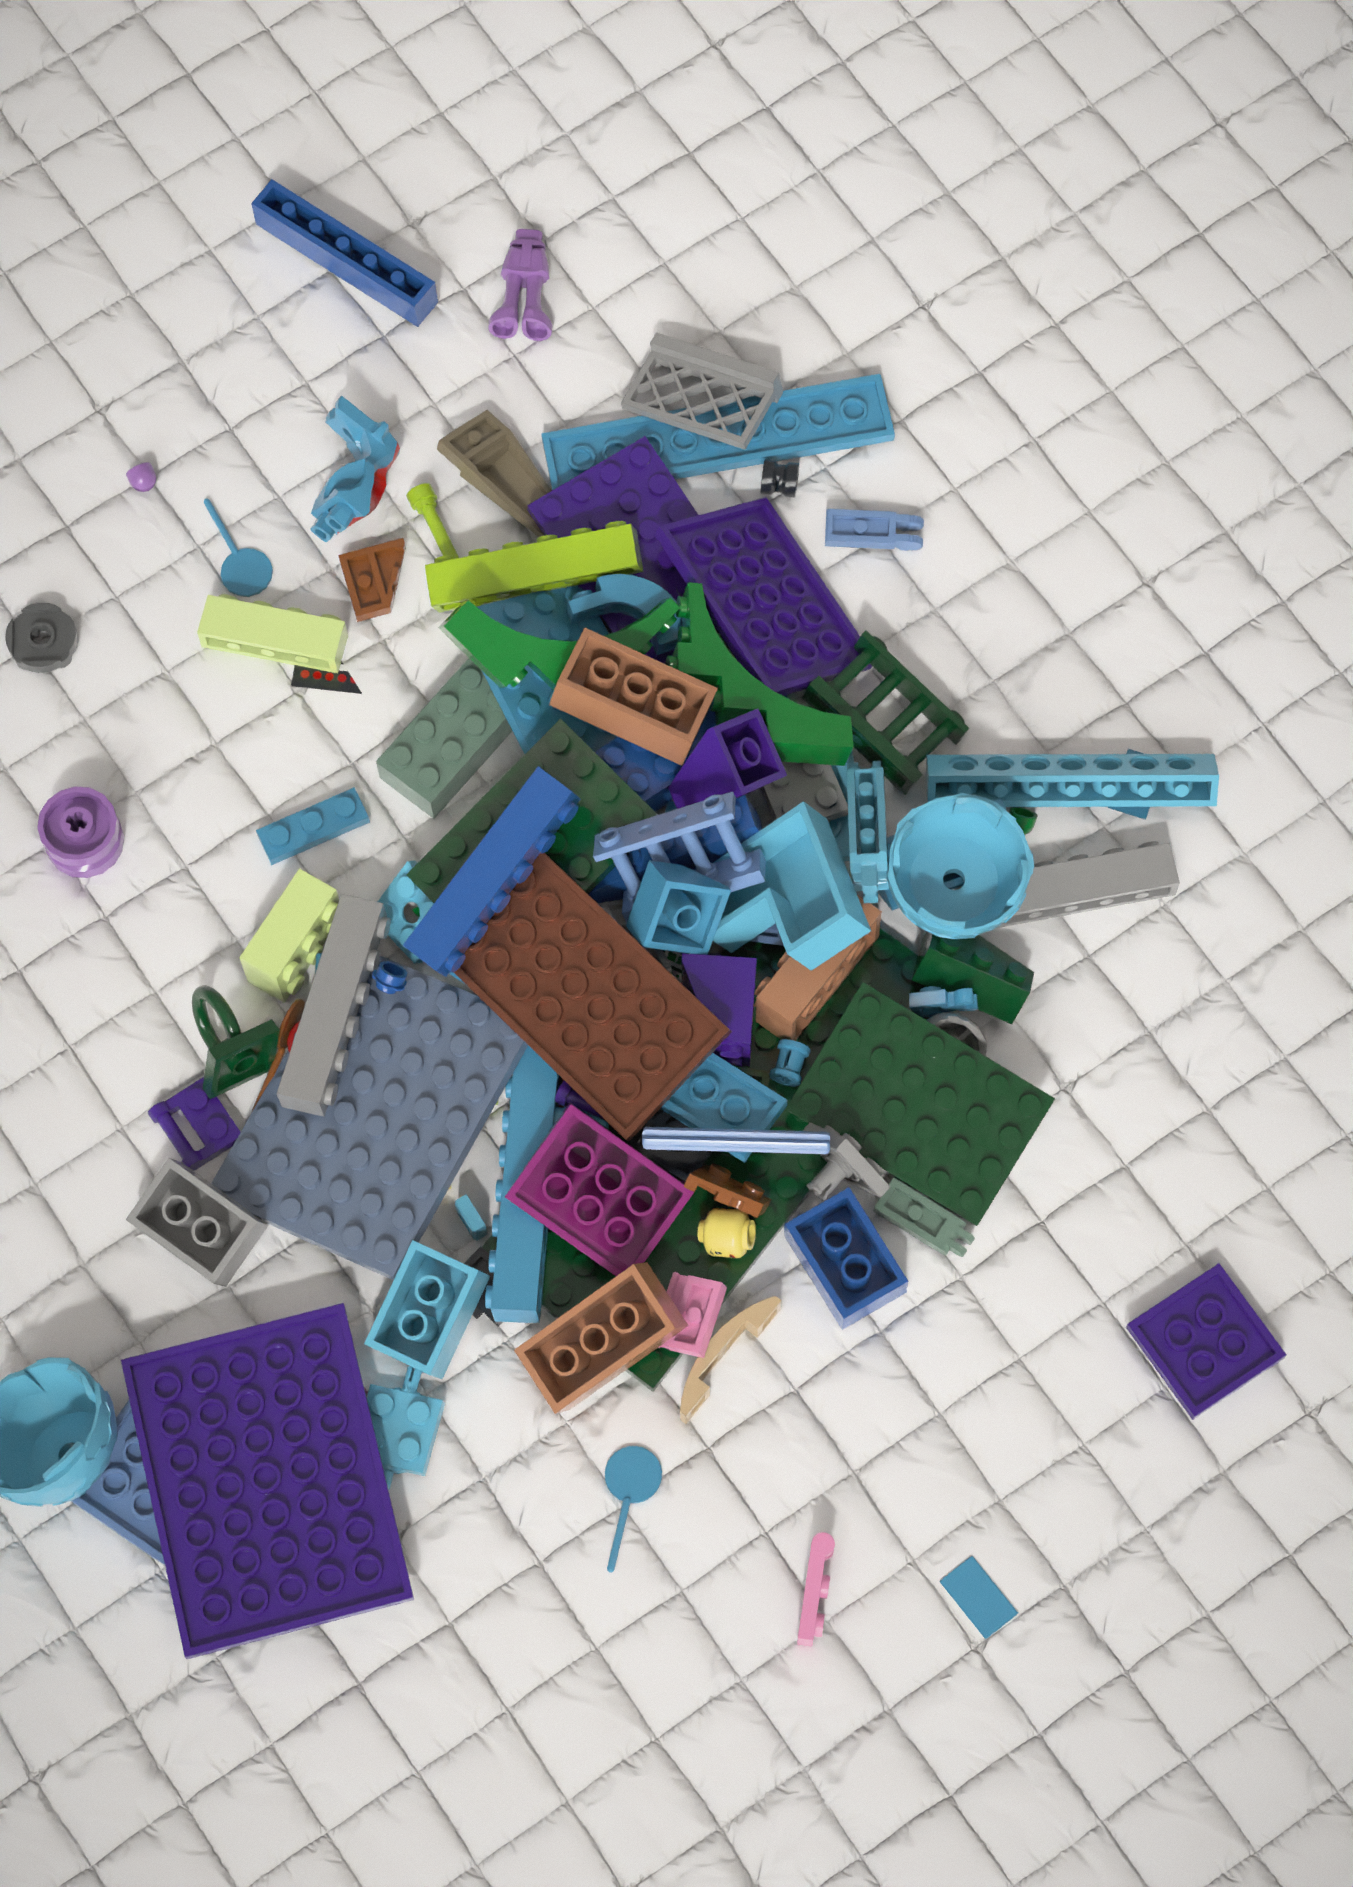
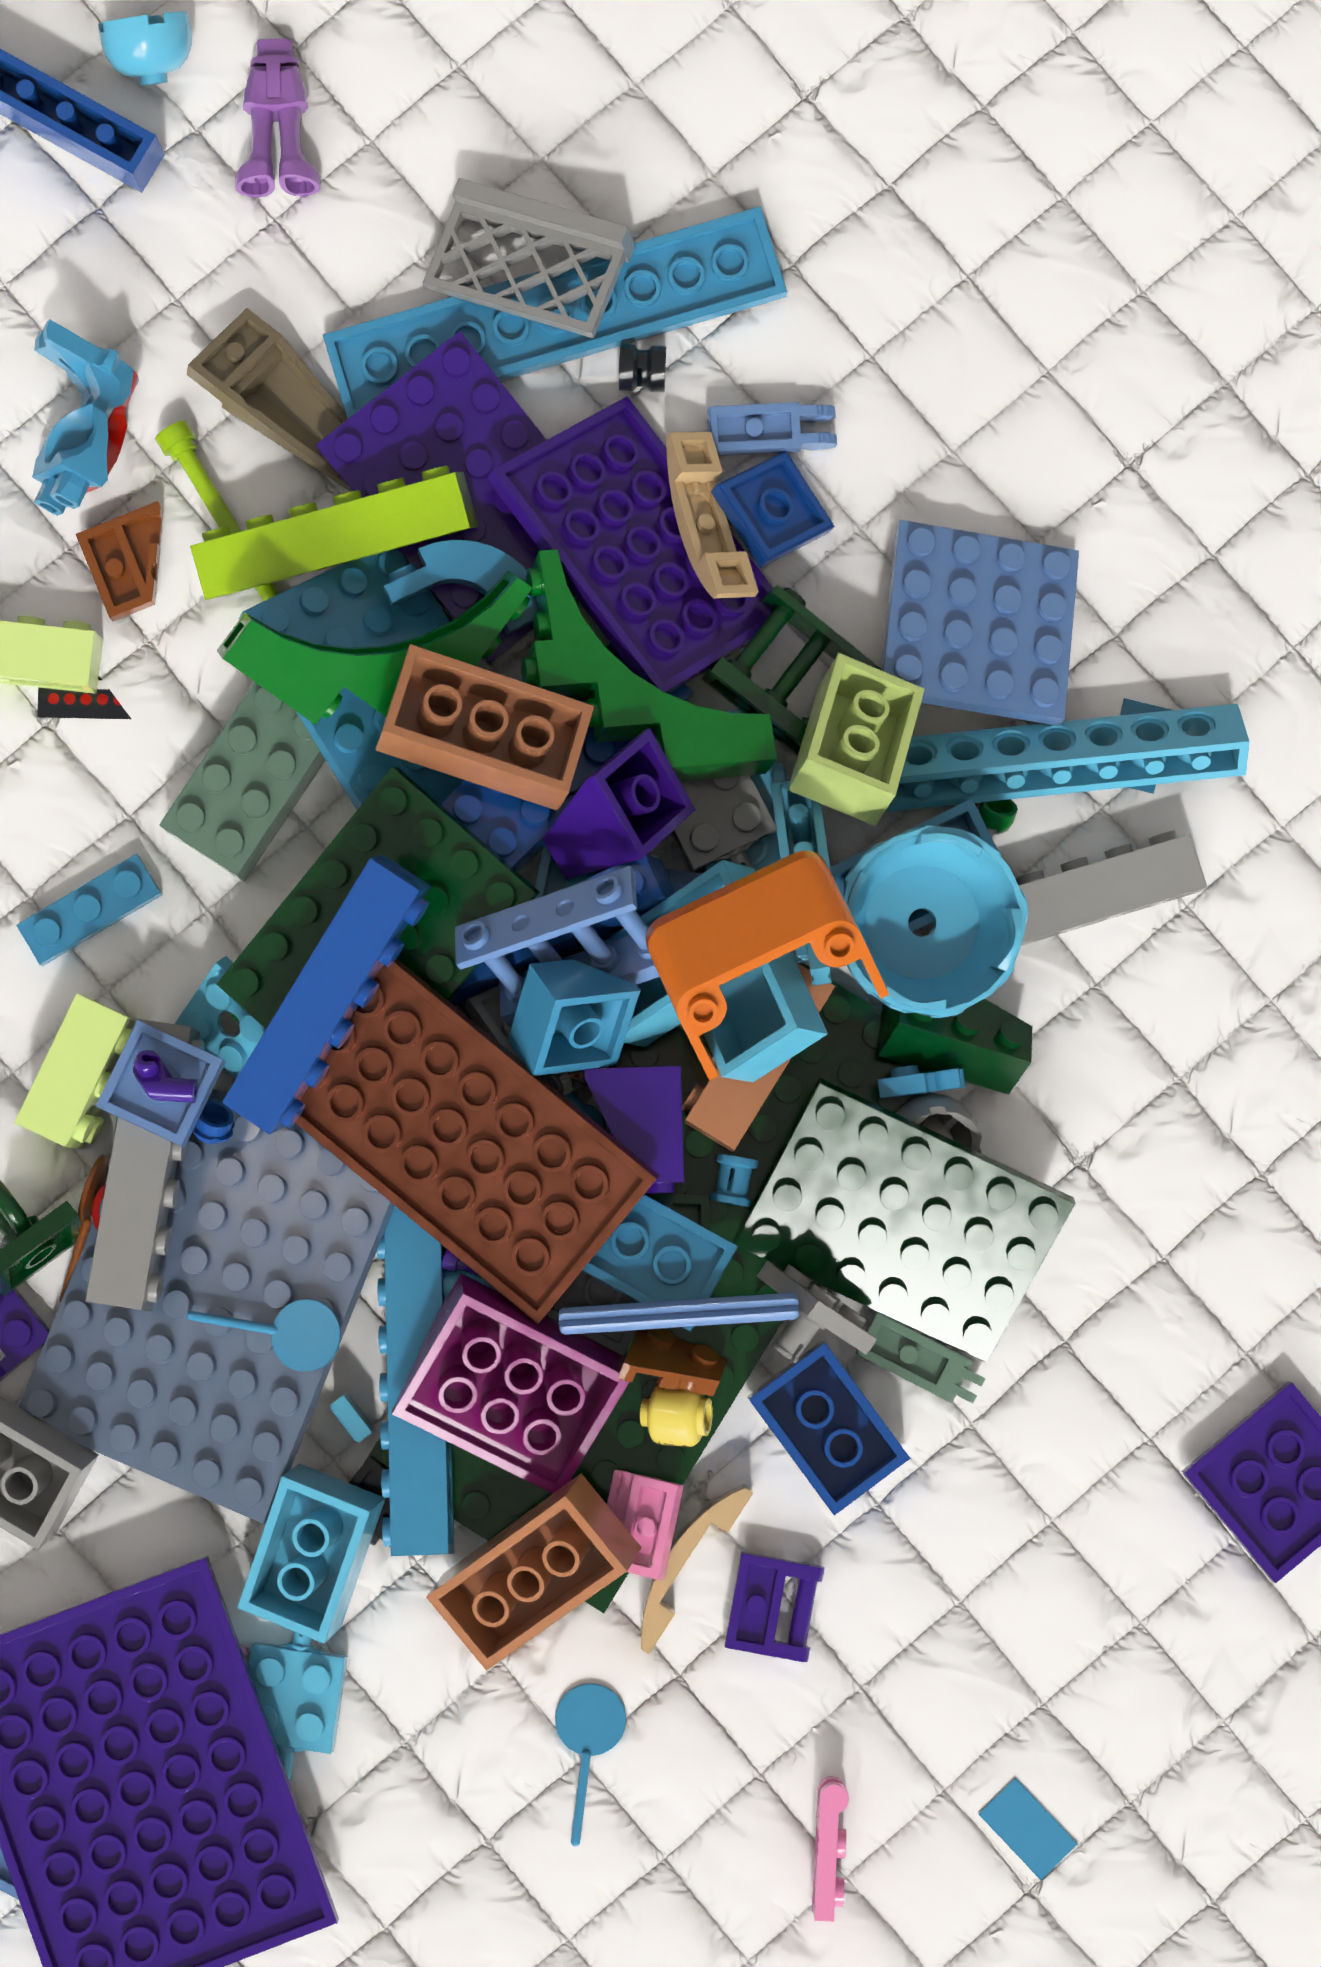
camera: 10 degrees left, 15 degrees up
(354, 933) = (158, 1081): none -> dark purple arm
(355, 940) = (129, 1101): none -> medium blue tile
(435, 223) = (147, 45): none -> medium azure cylinder
(439, 1138) = (302, 1334): none -> dark azure piece
(777, 1392) = (758, 1604): none -> dark purple plate
(813, 580) = (700, 519): none -> tan slope
(815, 836) = (746, 928): none -> orange windscreen
(869, 585) = (772, 509): none -> blue plate
(915, 739) = (856, 739): none -> yellowish green brick
(1019, 677) = (981, 621): none -> medium blue plate

